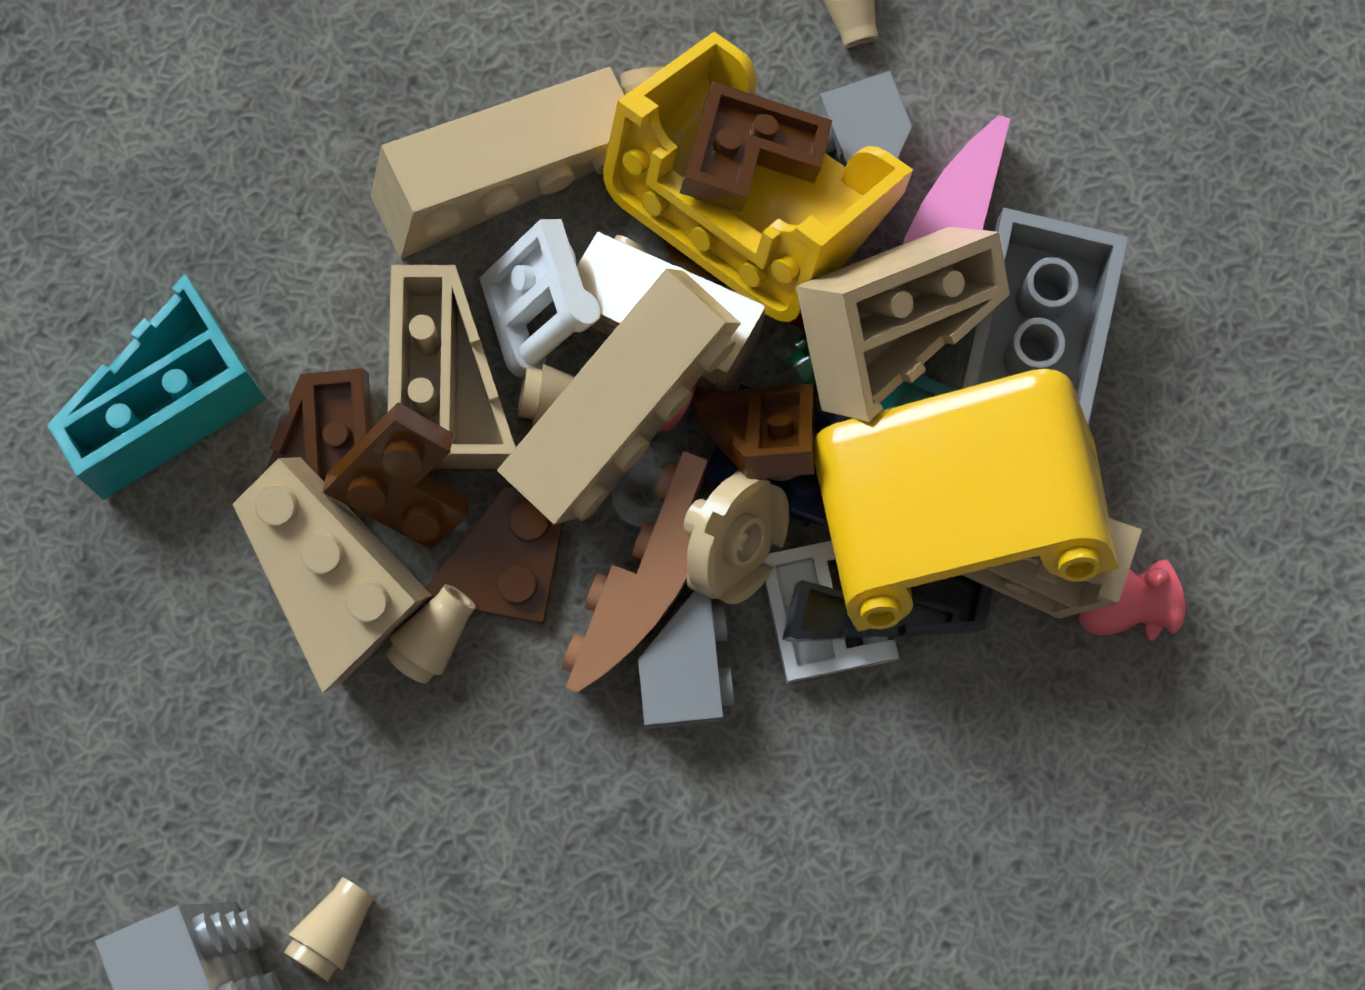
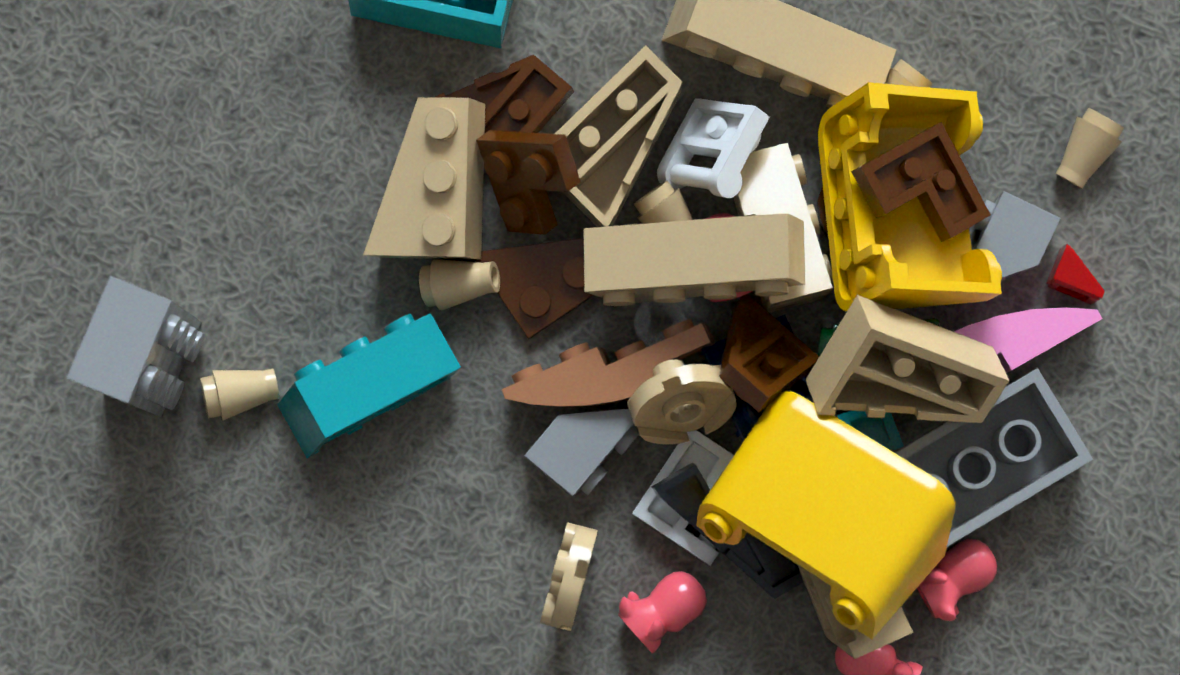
camera: 50 degrees right, 5 degrees up
(437, 803) = (366, 381): none -> teal wedge
(793, 791) = (569, 576): none -> tan plate
(902, 731) = (668, 608): none -> coral animal
(949, 112) = (1073, 278): none -> red slope
(1119, 443) = (961, 571): none -> coral animal

